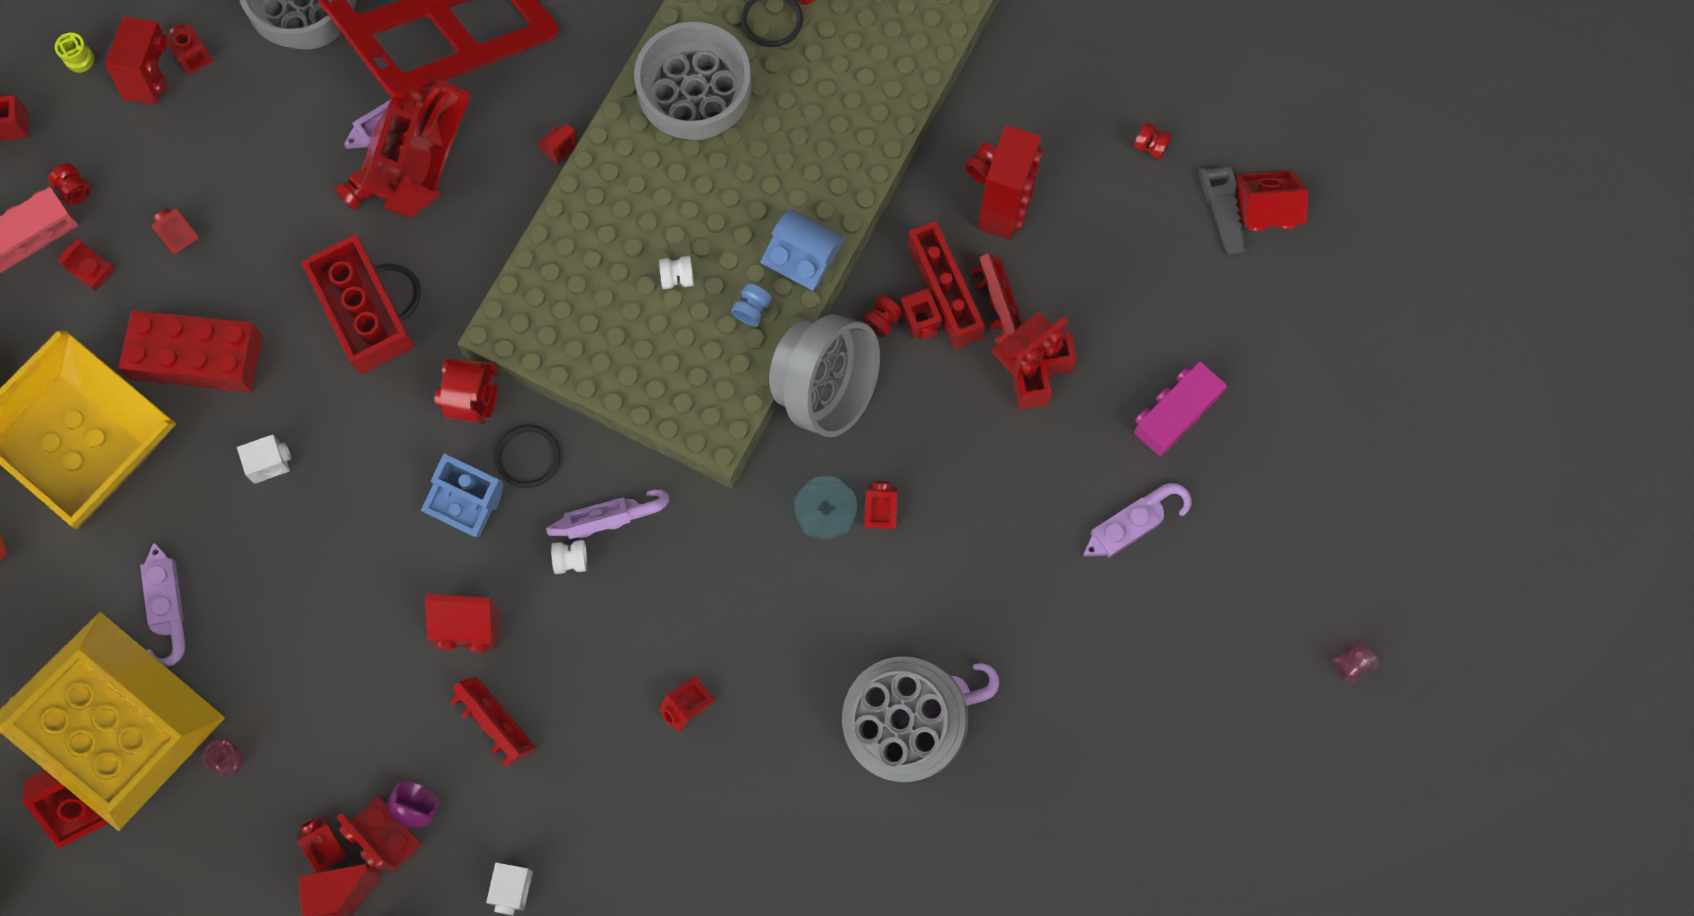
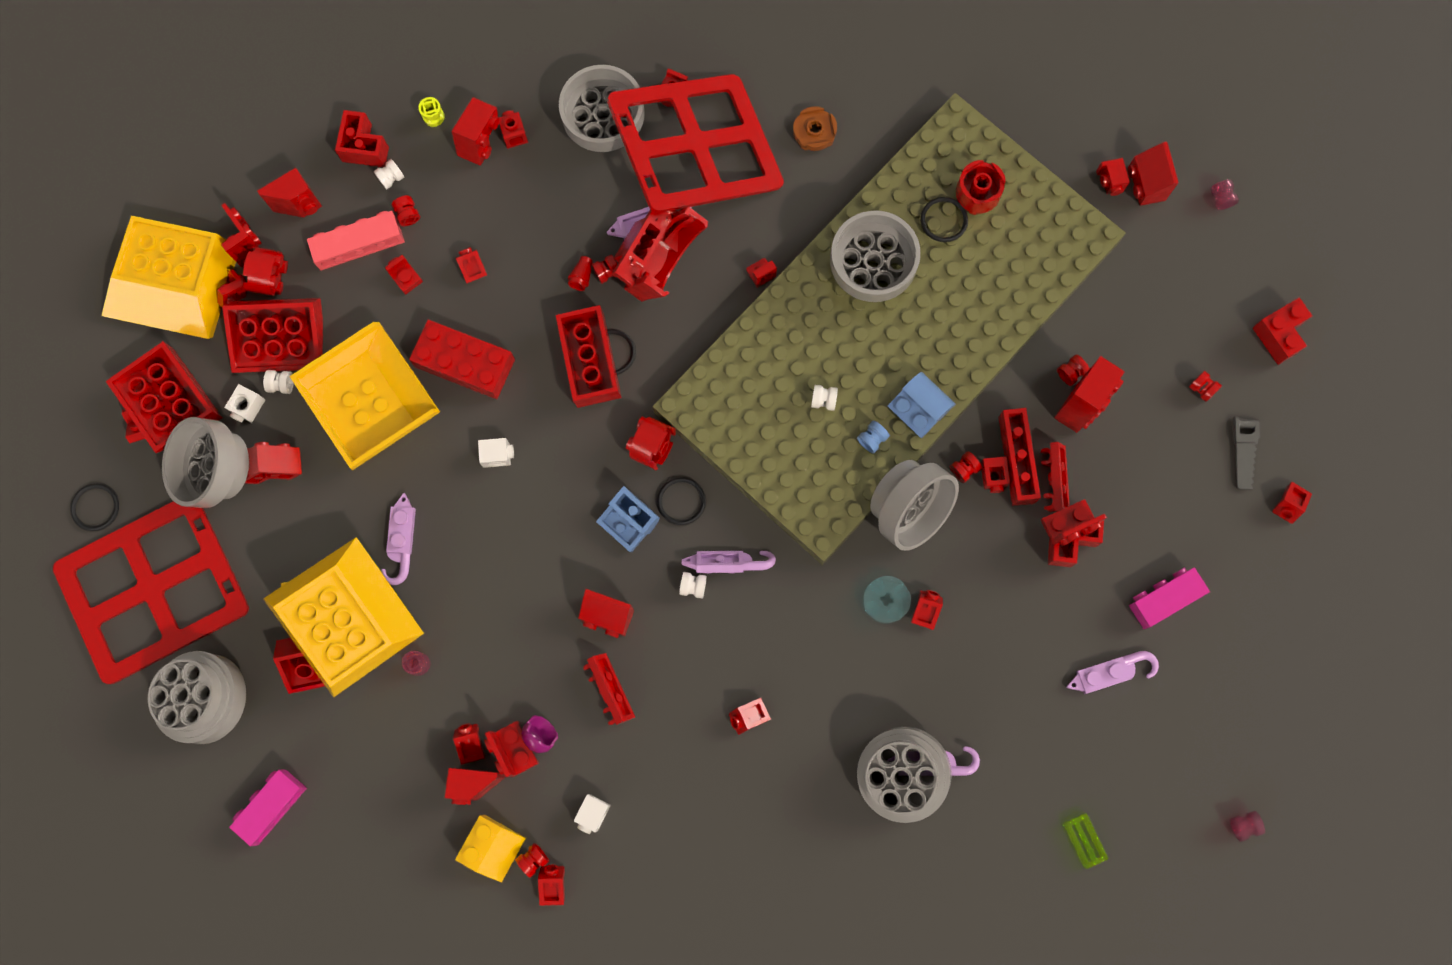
camera: 20 degrees right, 5 degrees up
(35, 143) = (388, 174): none -> white wheel
(323, 206) = (580, 275): none -> red cone
(1151, 749) = (1076, 821): none -> clear neon green tile
(1224, 50) = (1279, 330): none -> red brick
(1271, 199) = (1283, 455): red slope -> none
(1299, 254) = (1292, 503): none -> red bracket

